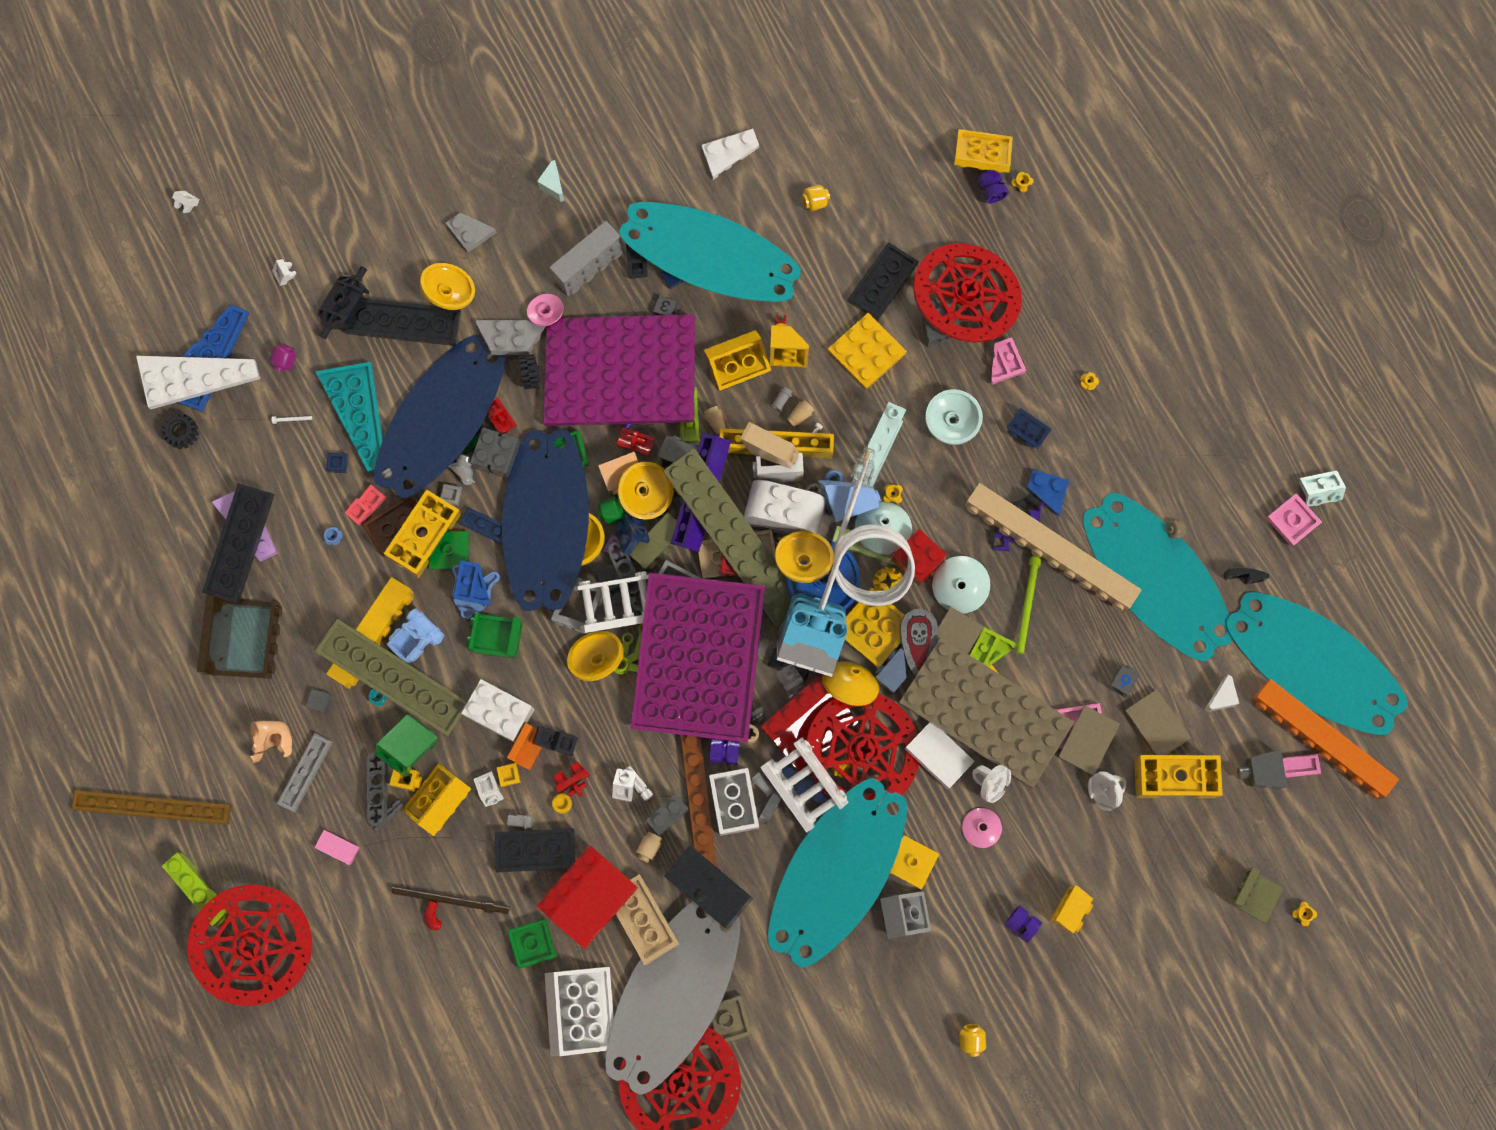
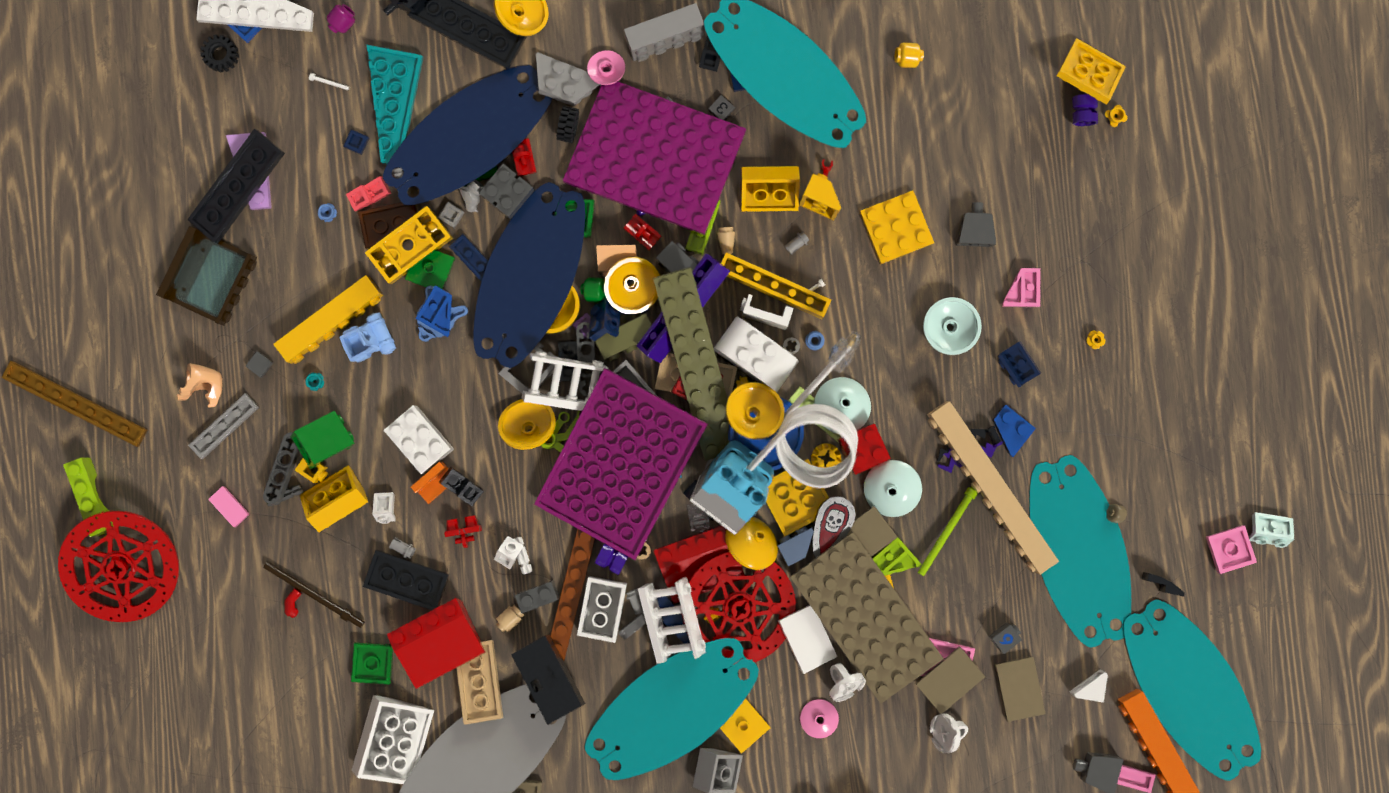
camera: 20 degrees right, 10 degrees up
(392, 677) = (332, 370): olive plate -> none
(495, 635) = (442, 366): green panel -> none
(508, 775) = (407, 502): yellow plate -> none
(562, 803) = (446, 546): yellow tile -> none
(758, 715) = (656, 536): dark grey plate -> none
(769, 446) = (764, 291): tan slope -> none
(800, 413) = (809, 264): tan cone -> none
(839, 495) = (812, 362): light blue slope -> none
(883, 281) = (940, 163): black tile -> none
(885, 436) = (879, 320): light aqua fence -> none
(897, 489) = (859, 377): yellow plate -> none
(1012, 297) = (1007, 208): red piece -> none
(1157, 776) = (998, 741): yellow plate -> none

